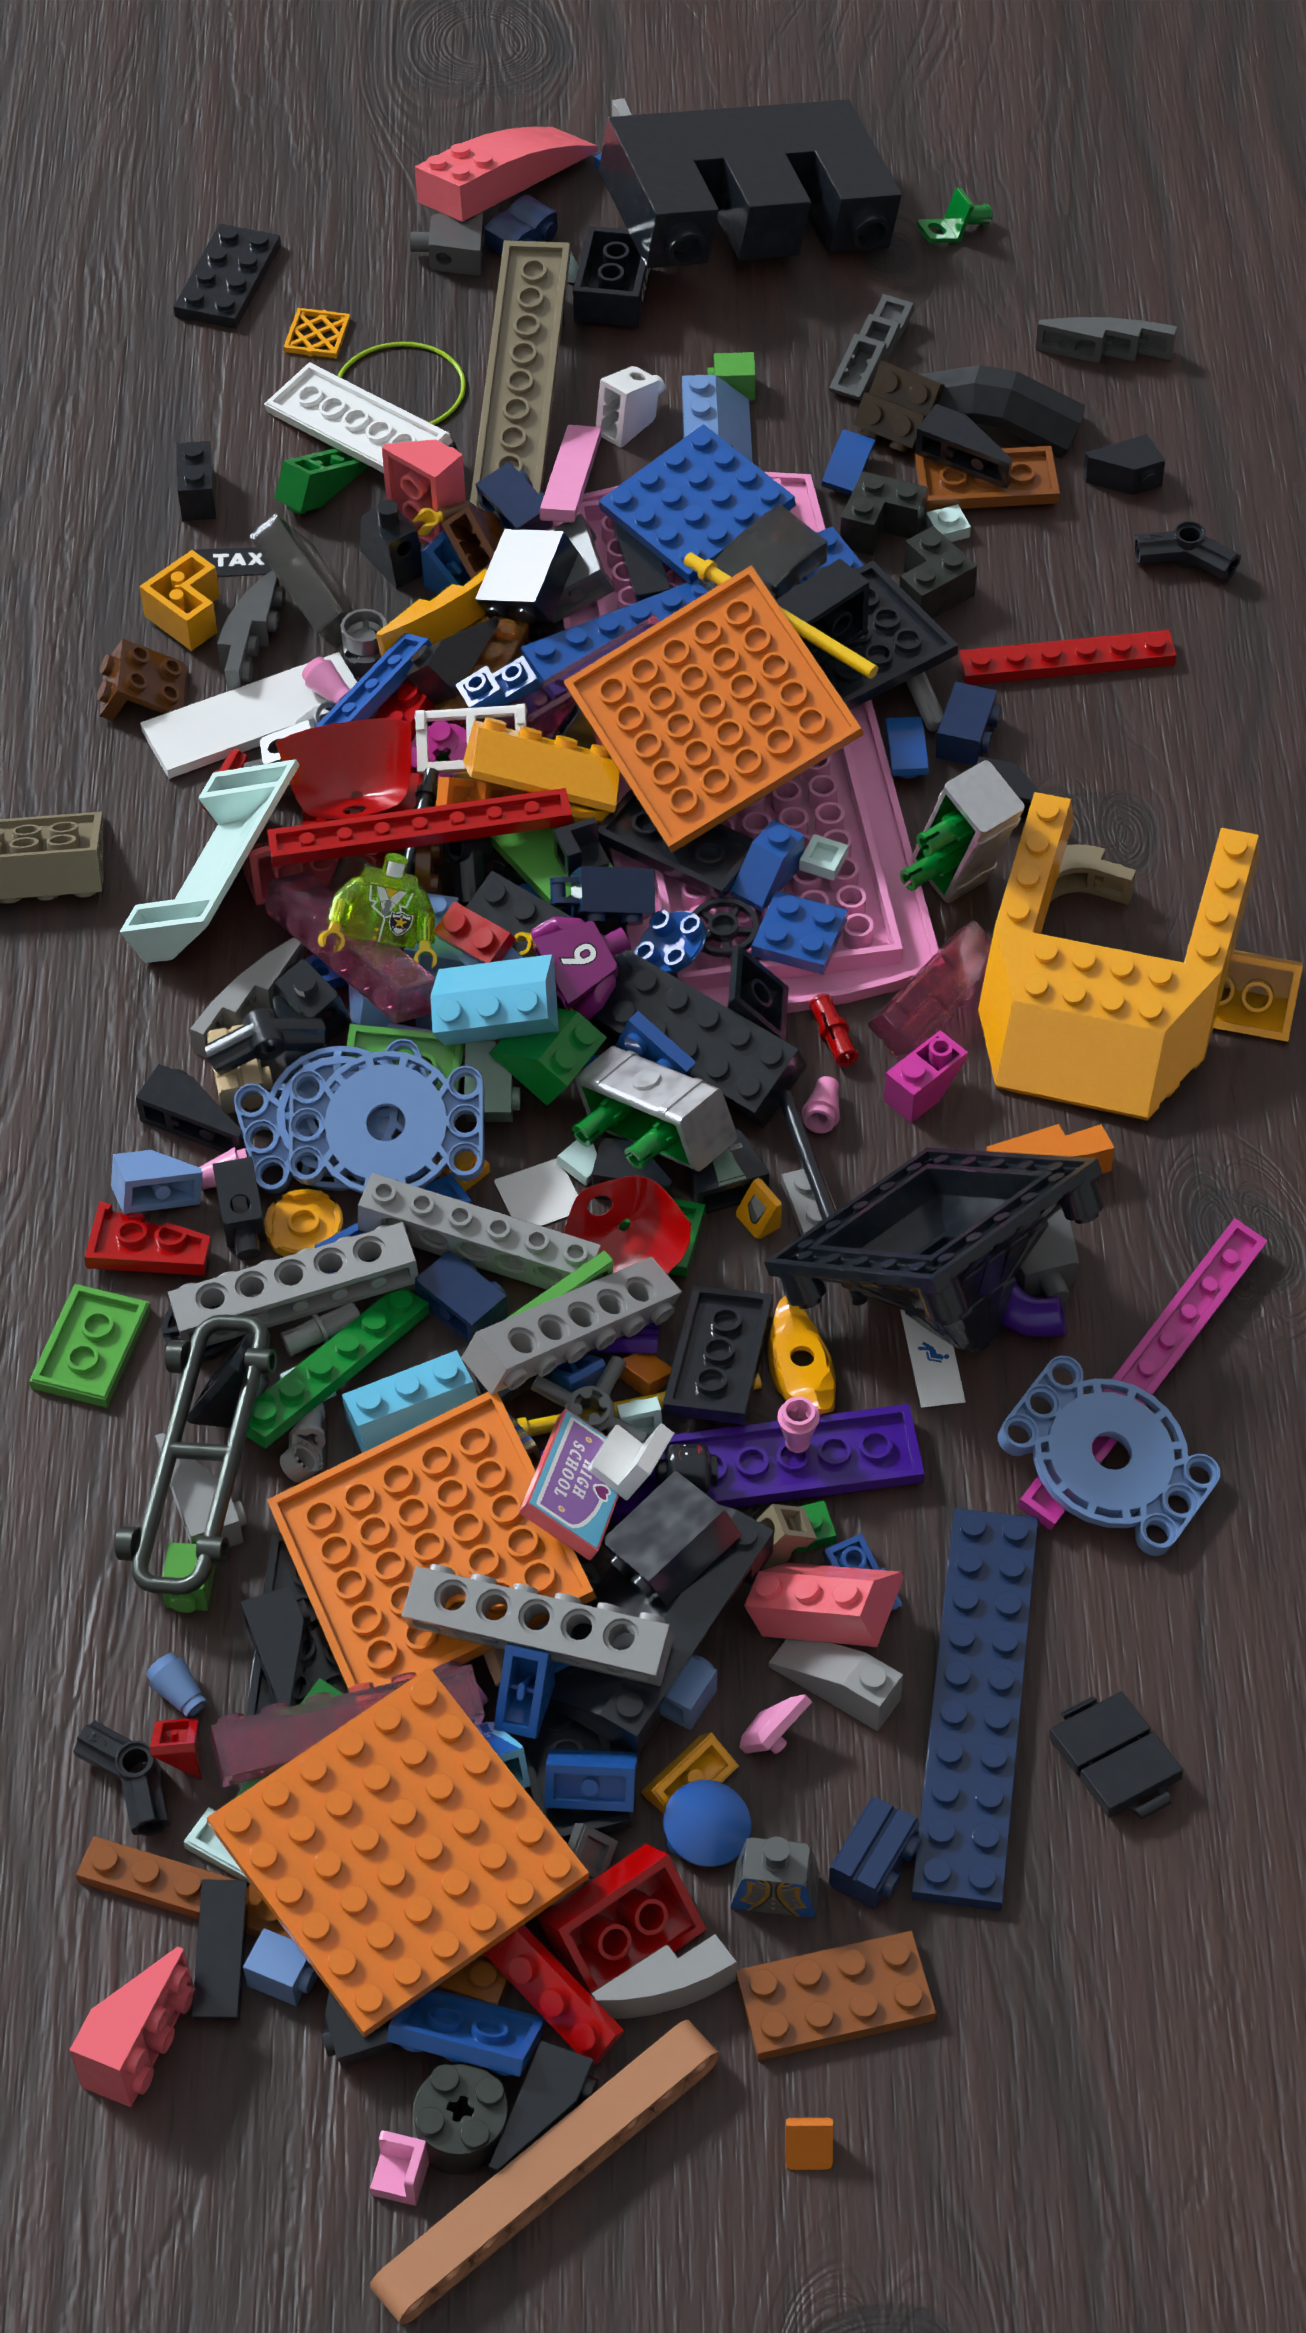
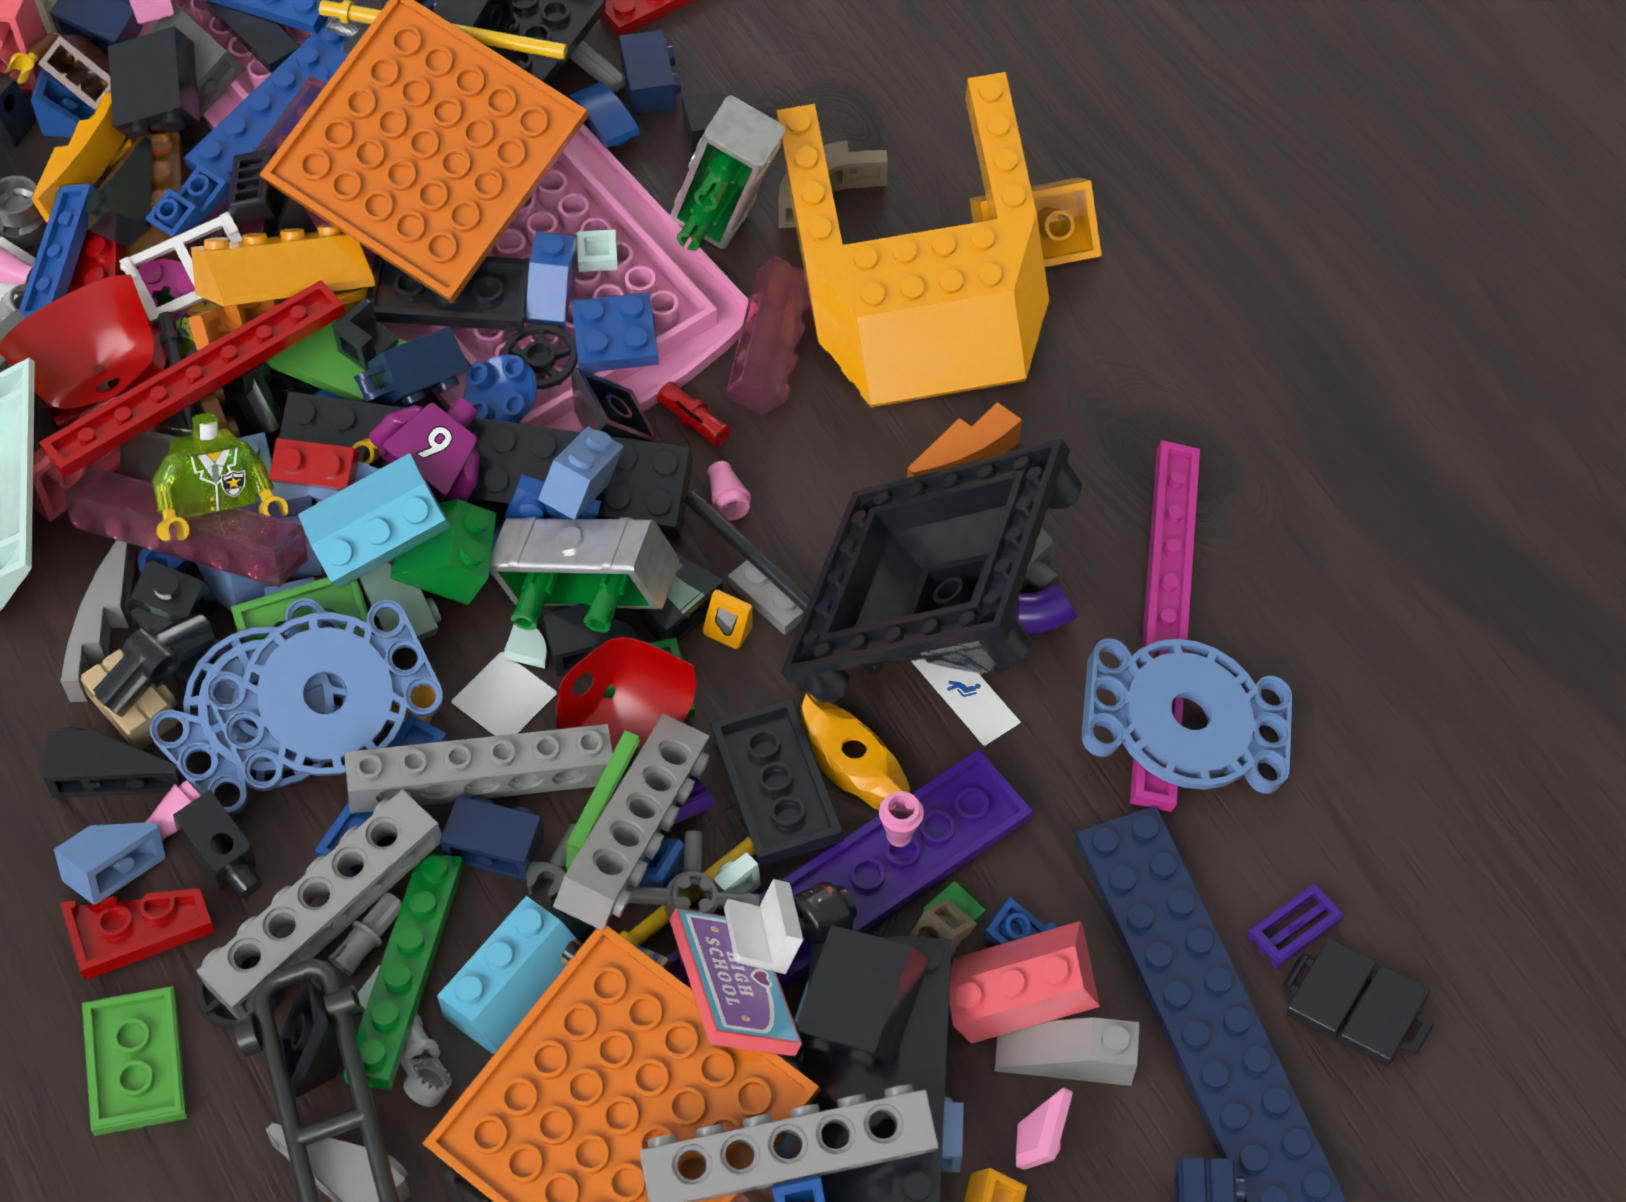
camera: 30 degrees left, 5 degrees up
(301, 1221) = (286, 831): light orange tile -> none
(537, 701) = (257, 208): none -> black slope
(645, 1373) = (717, 830): orange slope -> none
(686, 1028) = (580, 472): none -> medium blue brick
(923, 1076) = (807, 423): dark pink slope -> none
(1102, 1677) = (1268, 946): none -> dark purple tile

